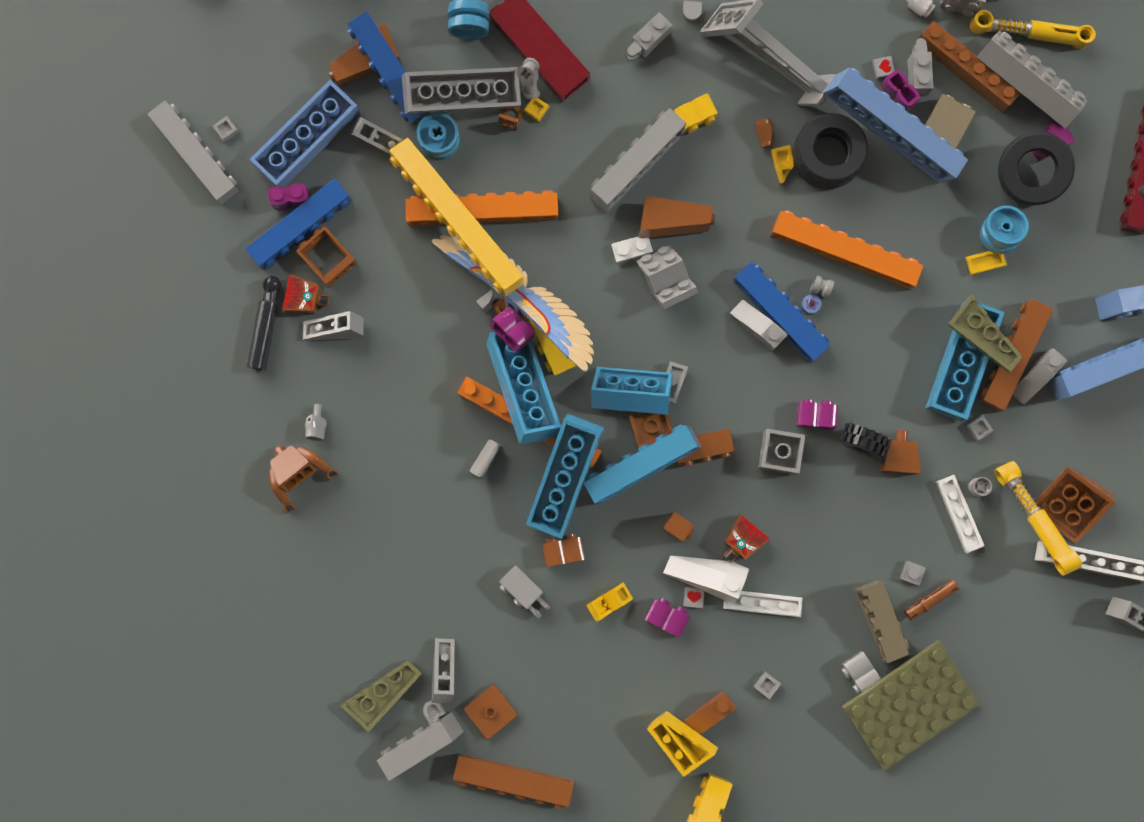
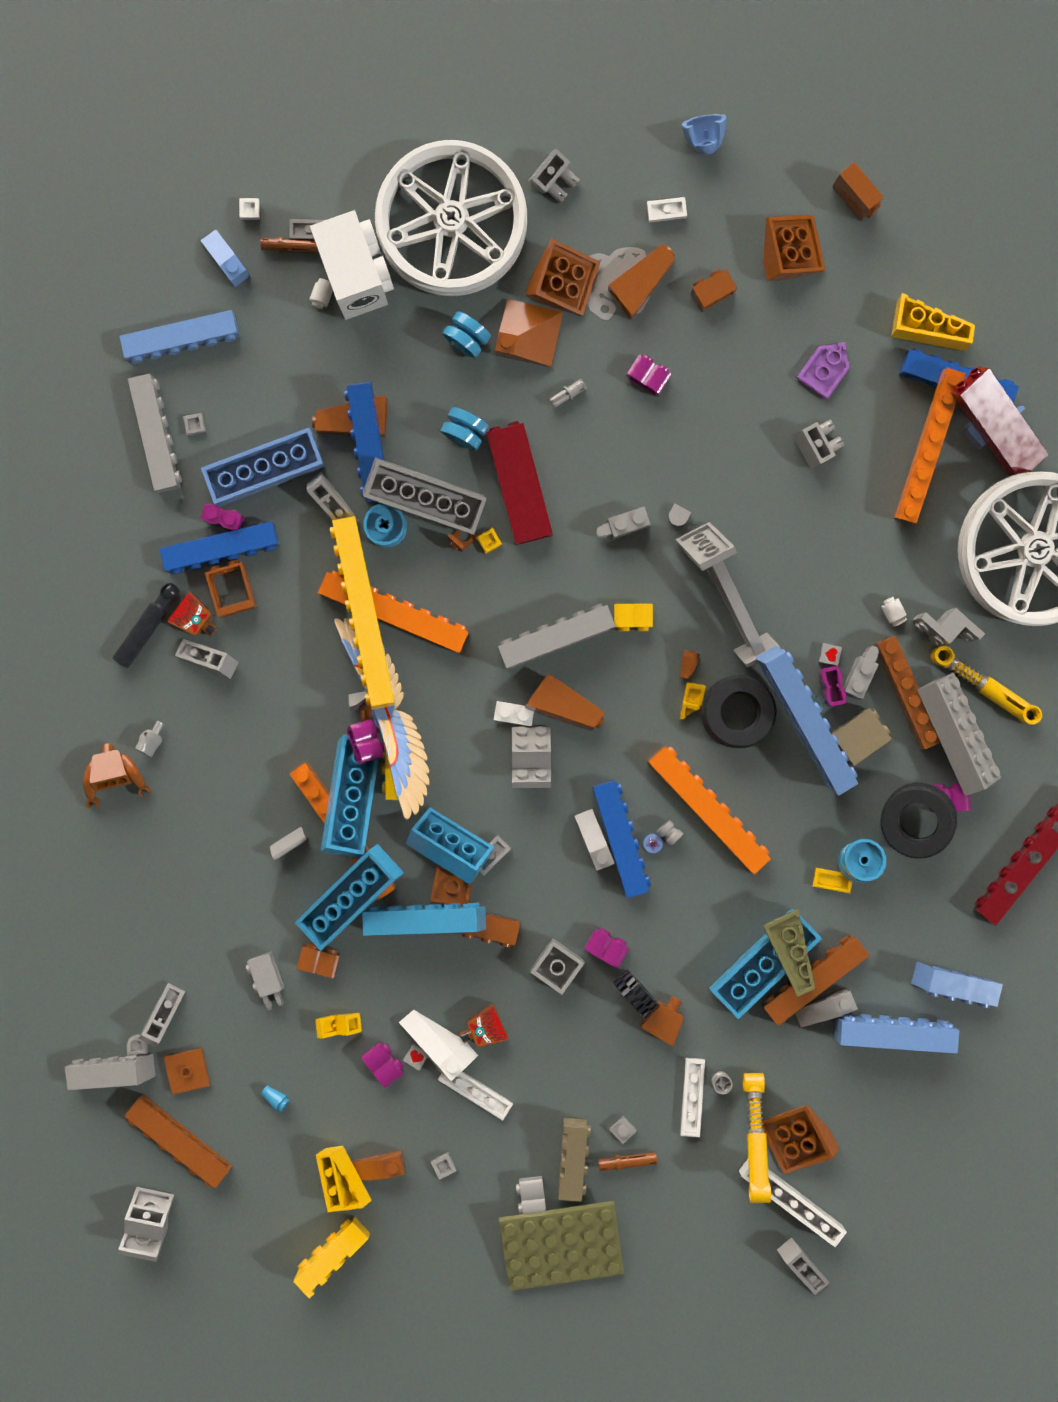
camera: 30 degrees right, 5 degrees up
(176, 58) = (180, 336): none -> medium blue brick
(377, 699) = (91, 1012): olive wing -> none
(529, 75) = (493, 511): light grey connector -> none
(585, 697) = (276, 1099): none -> dark azure cone
(678, 527) = (430, 990): dark orange brick -> none
(979, 428) = (749, 1029): light grey tile -> none

